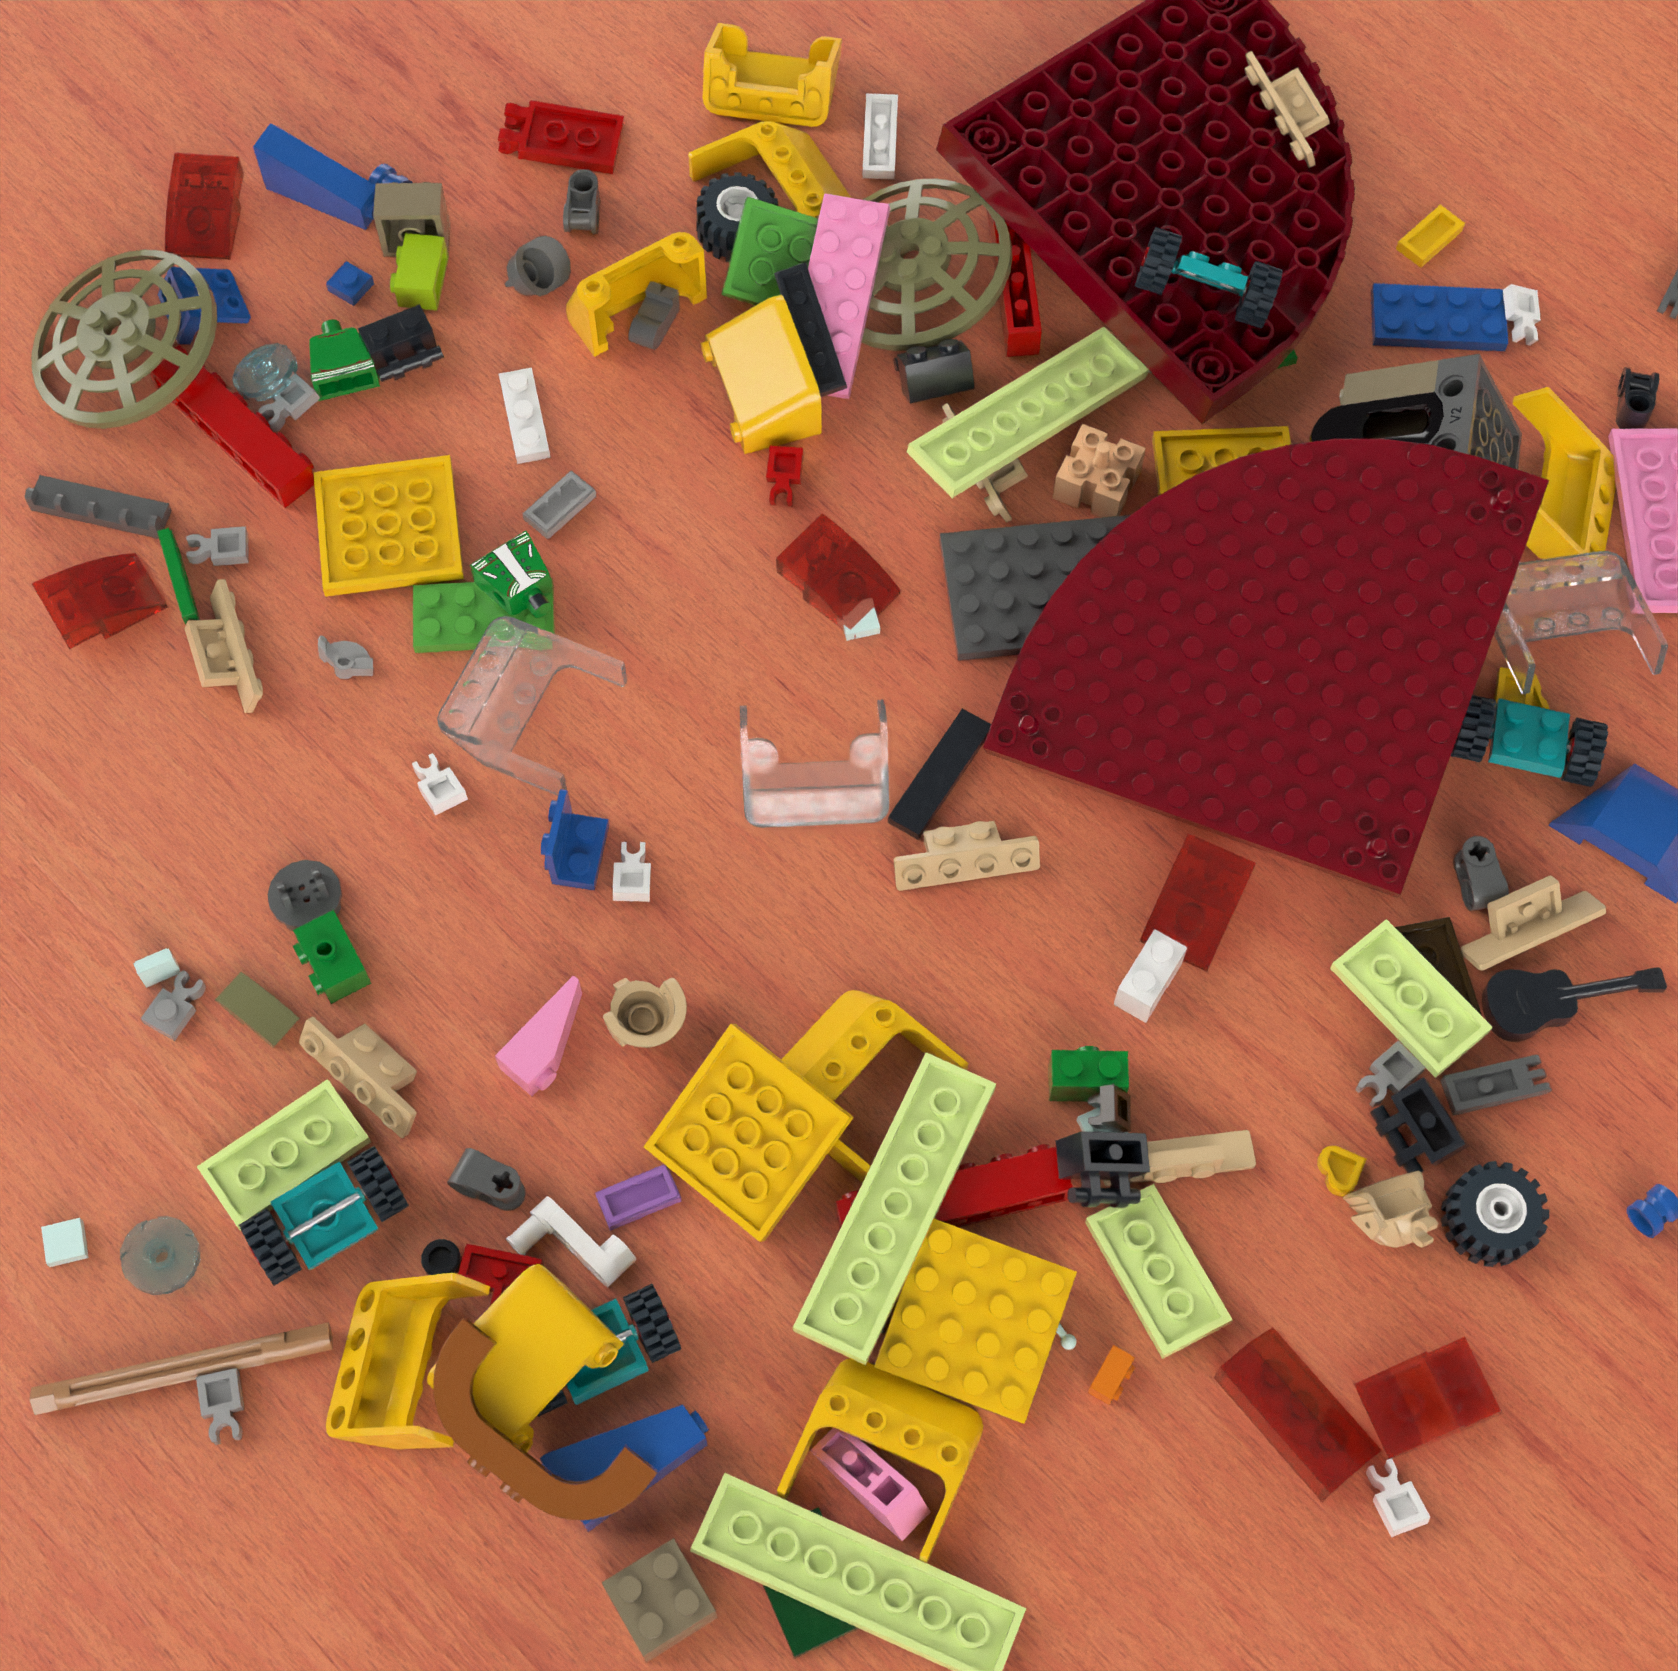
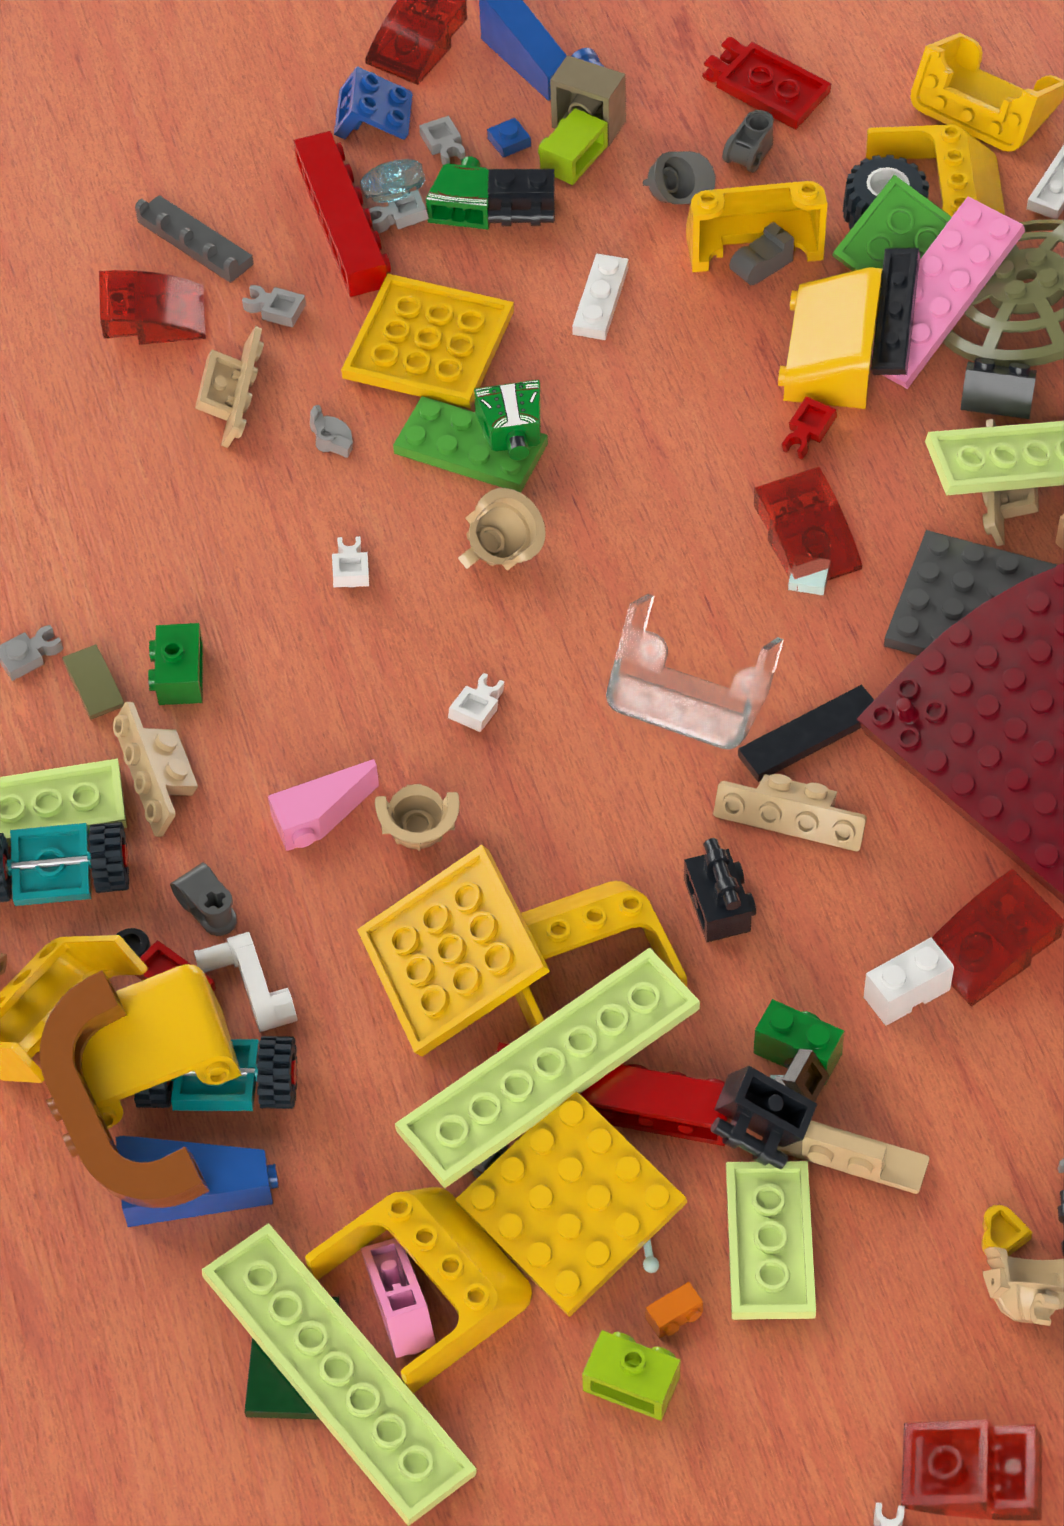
camera: 30 degrees right, 10 degrees down
(131, 340) = (283, 100): olive dish -> none
(157, 967) = (28, 613): light aqua tile -> none
(178, 575) = (226, 313): green tile -> none
(288, 901) = (202, 606): dark grey plate -> none
(289, 308) = (443, 138): none -> light grey plate
(503, 689) = (429, 512): clear windscreen -> none
(559, 504) = (588, 378): light grey plate -> none
(570, 695) = (504, 529): none -> tan helmet
(574, 845) = (435, 656): blue bracket -> none
(638, 1196) = (330, 971): medium lavender tile -> none
(660, 1600) = (152, 1305): dark tan brick -> none
(945, 966) = (718, 893): none -> black brick
(1109, 1452) = (631, 1374): none -> lime brick
(1296, 1413) = (834, 1423): clear red slope -> none

